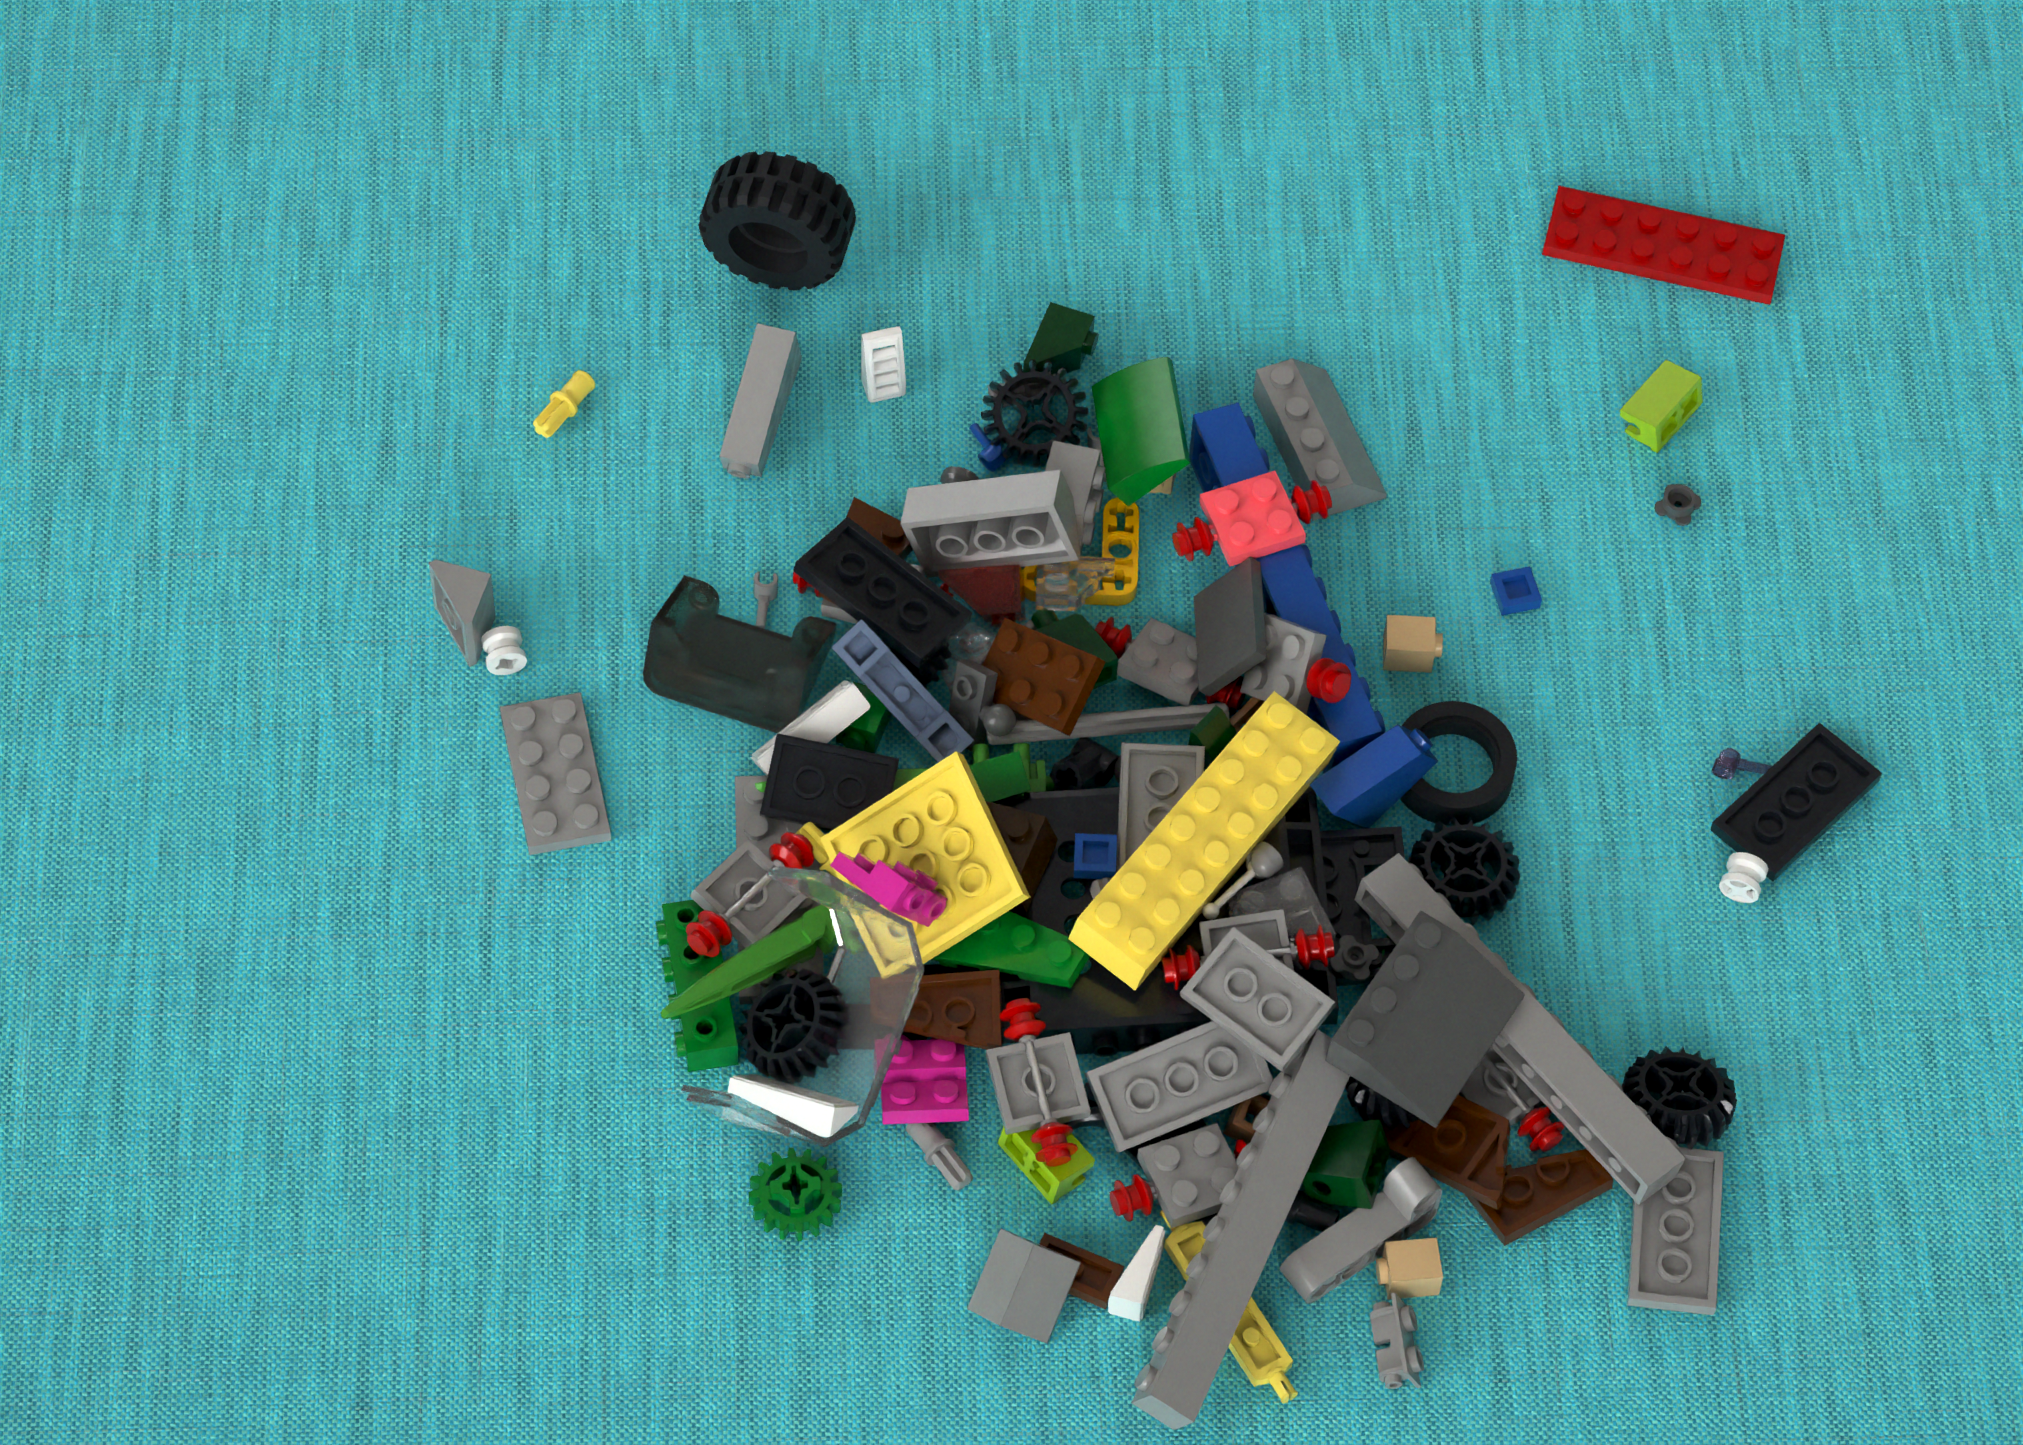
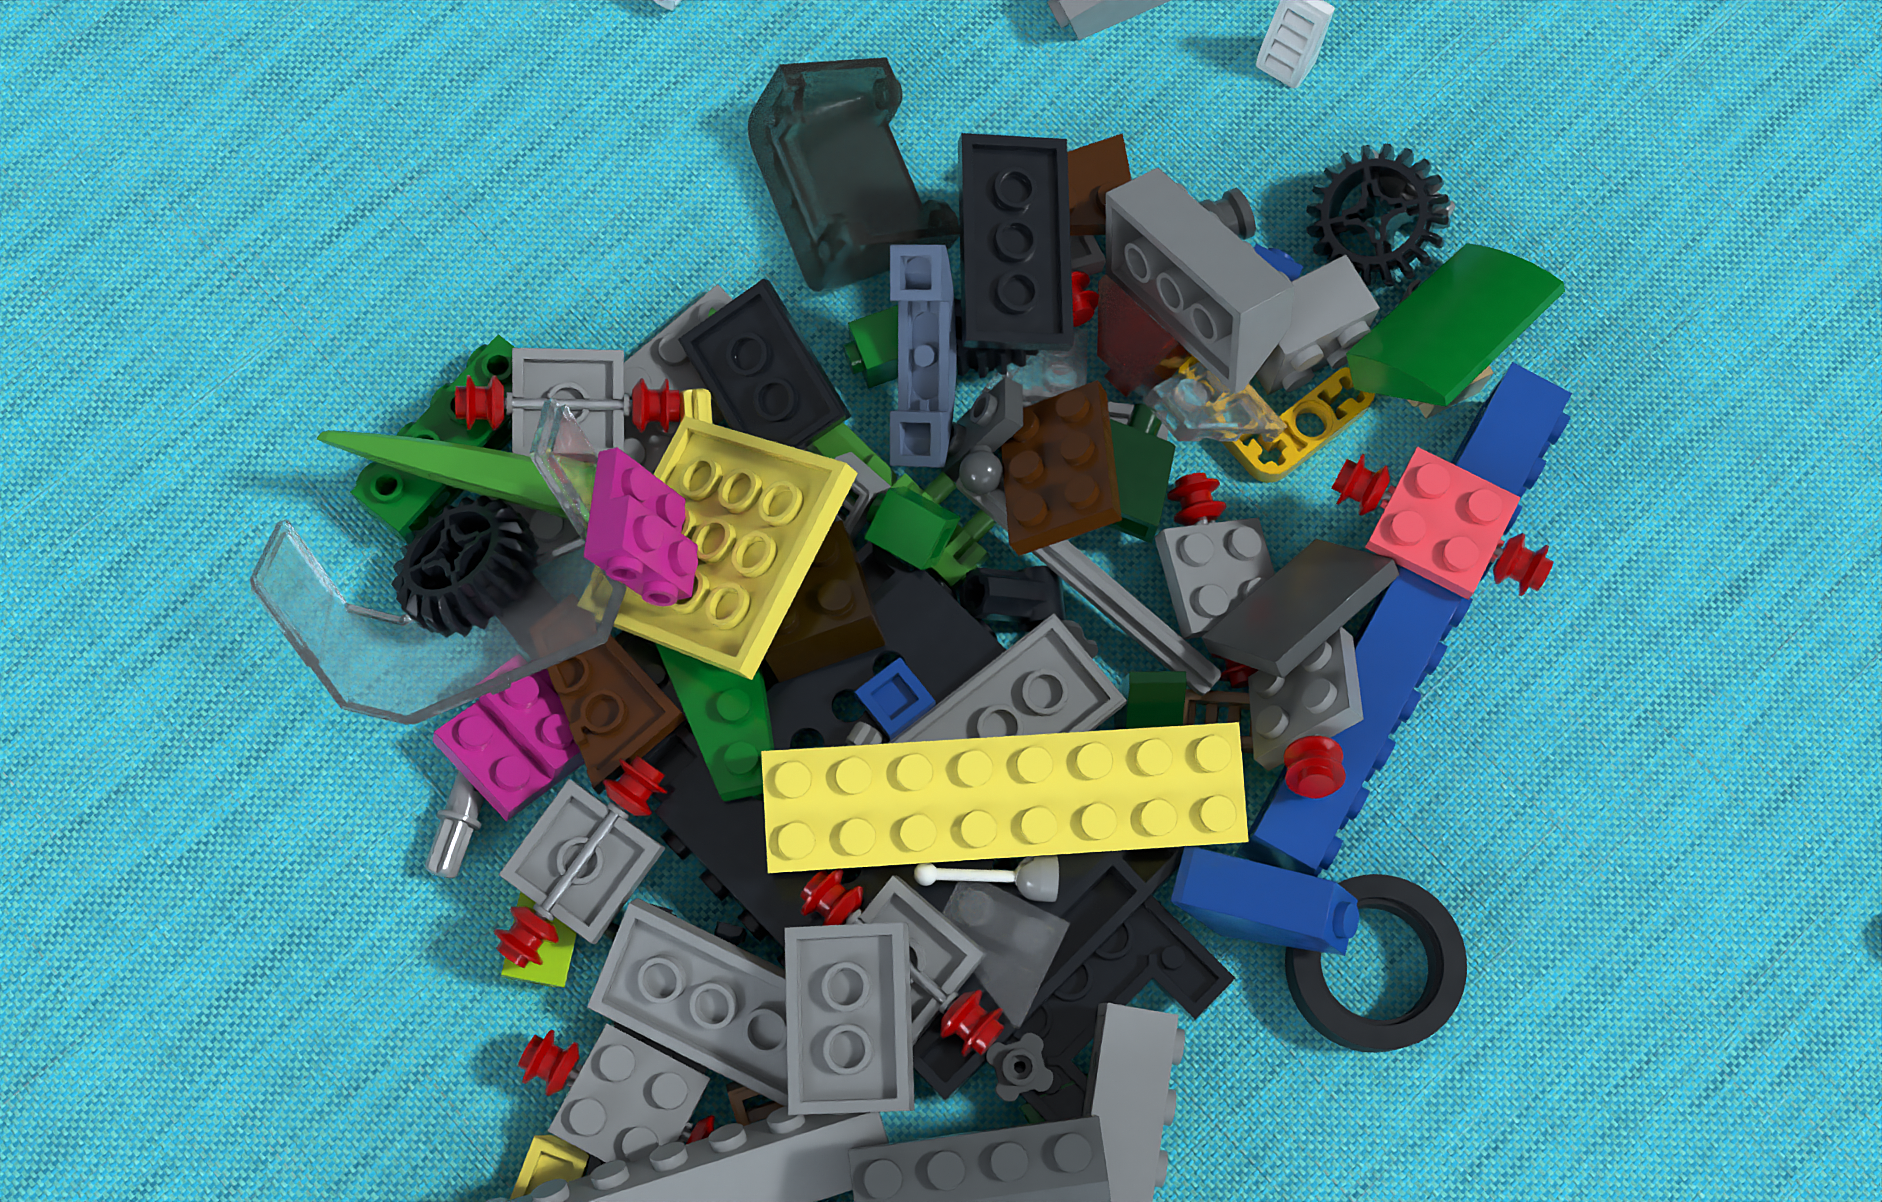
camera: 50 degrees right, 15 degrees up
(555, 773) = (582, 128): light grey plate -> none
(764, 594) = (947, 148): light grey hand -> none
(775, 1196) = (274, 733): green gear -> none
(801, 1106) = (376, 638): white slope -> none
(820, 721) = (834, 309): white slope -> none
(991, 455) = (1298, 215): blue hand -> none
(1023, 1286) = (357, 1035): light grey slope -> none
(1062, 339) = (1489, 173): dark green slope -> none
(1095, 1275) = (429, 1069): reddish brown plate -> none
(1133, 1288) = (457, 1148): white slope -> none
(1316, 434) = (1630, 503): light grey slope -> none
(1411, 643) = (1476, 800): tan brick -> none
(1461, 857) = (1253, 1111): black gear -> none
(1515, 591) = (1646, 854): blue plate -> none

